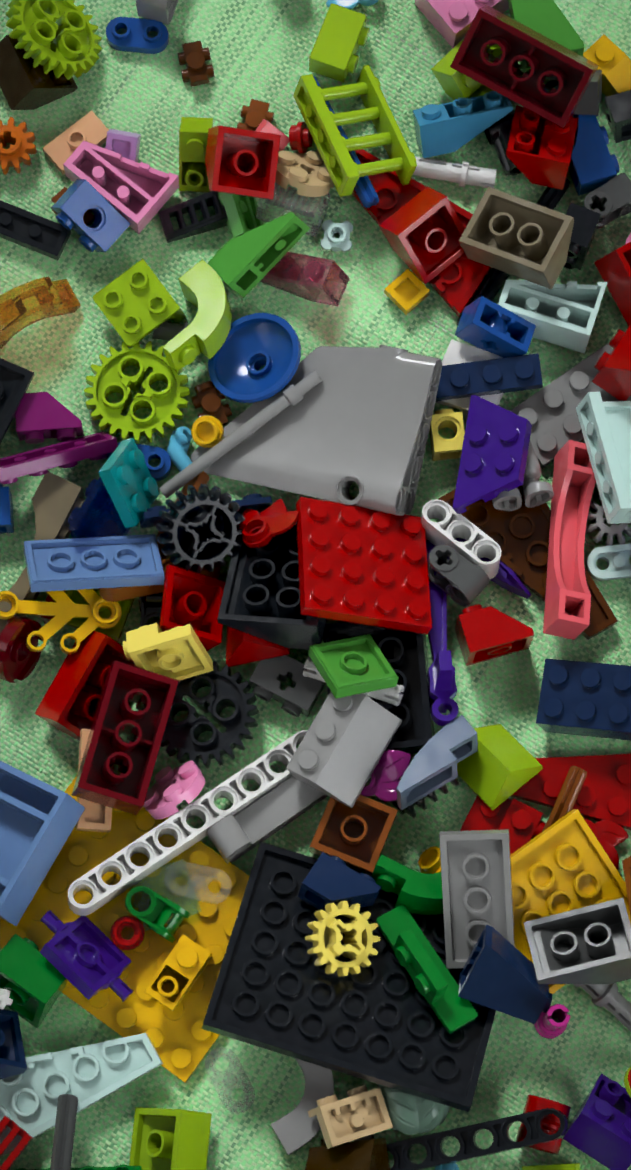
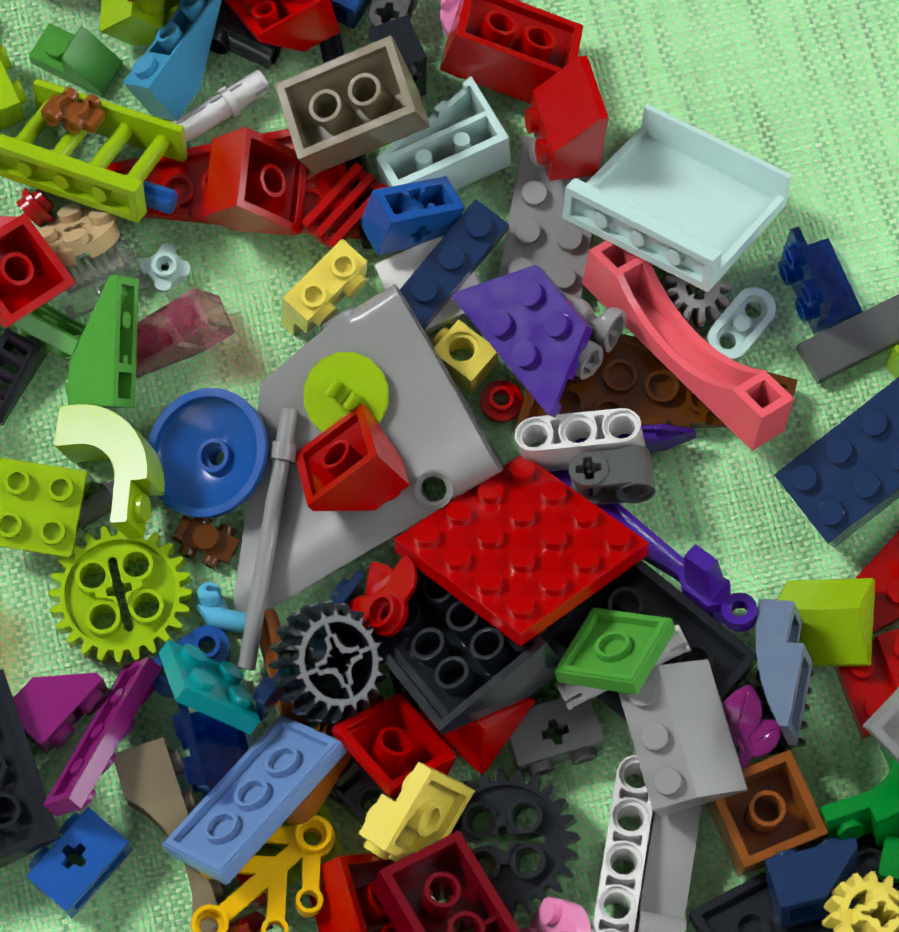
camera: 45 degrees left, 5 degrees down
(207, 431) = (230, 567): yellow plate -> none
(317, 436) = (351, 466): none -> red slope
(355, 395) = (340, 385): none -> lime piece
(365, 102) = (72, 114): none -> dark orange piece
(404, 324) = (317, 293): none -> light yellow plate
(405, 73) = (76, 58): none -> bright green slope
(407, 291) = (286, 258): yellow plate -> none
(430, 861) = (865, 768): yellow plate -> none
(439, 487) = (497, 412): none -> red plate
(459, 280) = (367, 181): none -> red tile
(490, 634) = (696, 501): red slope -> none

